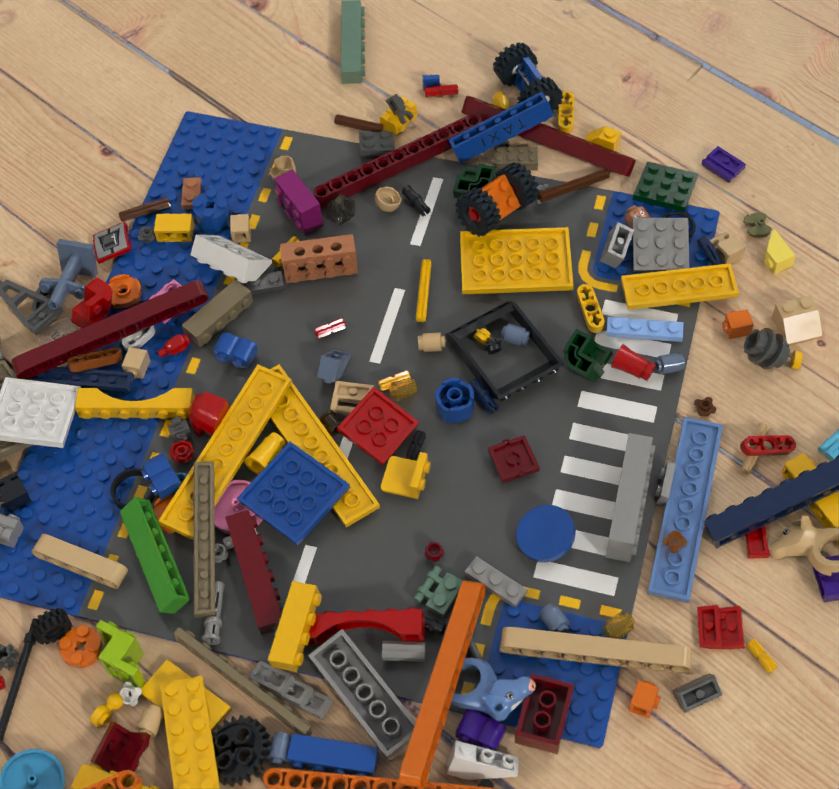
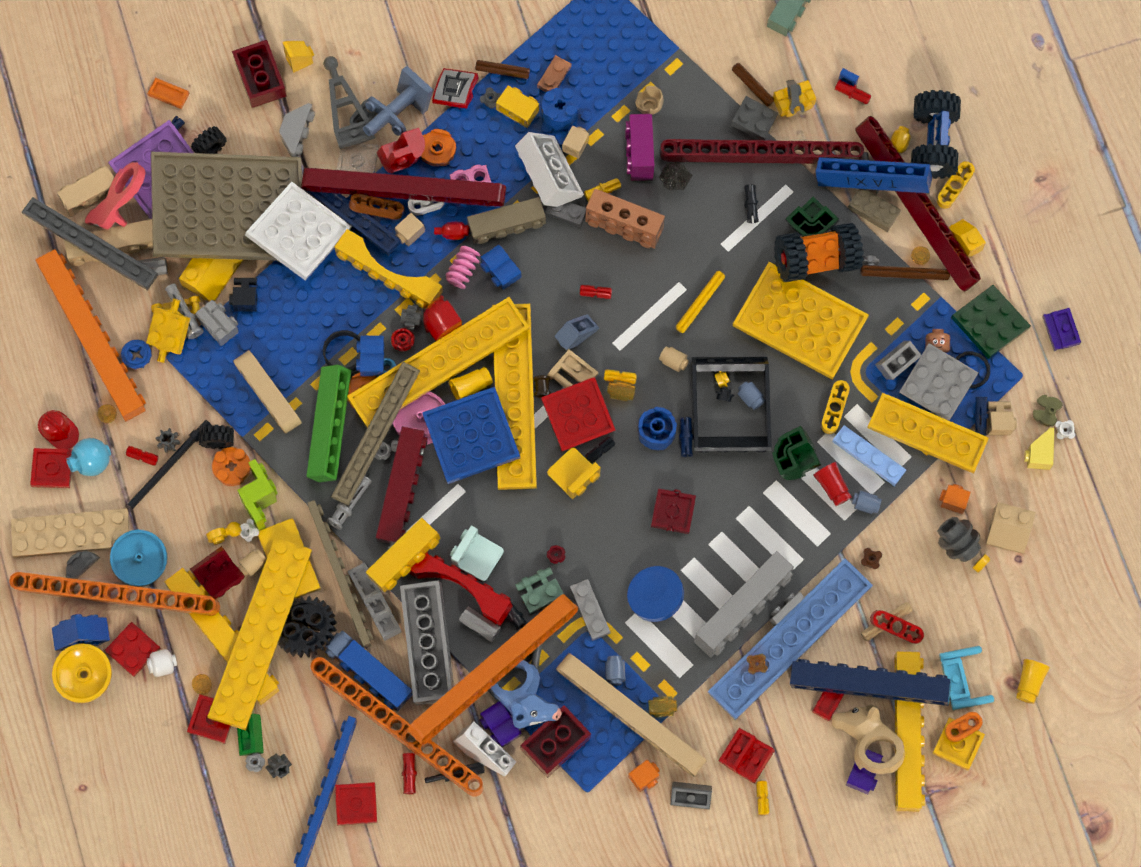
camera: 25 degrees right, 15 degrees up
(201, 366) = (461, 266): none -> bright pink piece
(361, 591) = (476, 554): none -> light aqua bracket
(387, 199) = (725, 188): tan hair -> none
(575, 171) = (920, 255): none -> clear yellow plate
(783, 229) = (1069, 425): none -> white plate

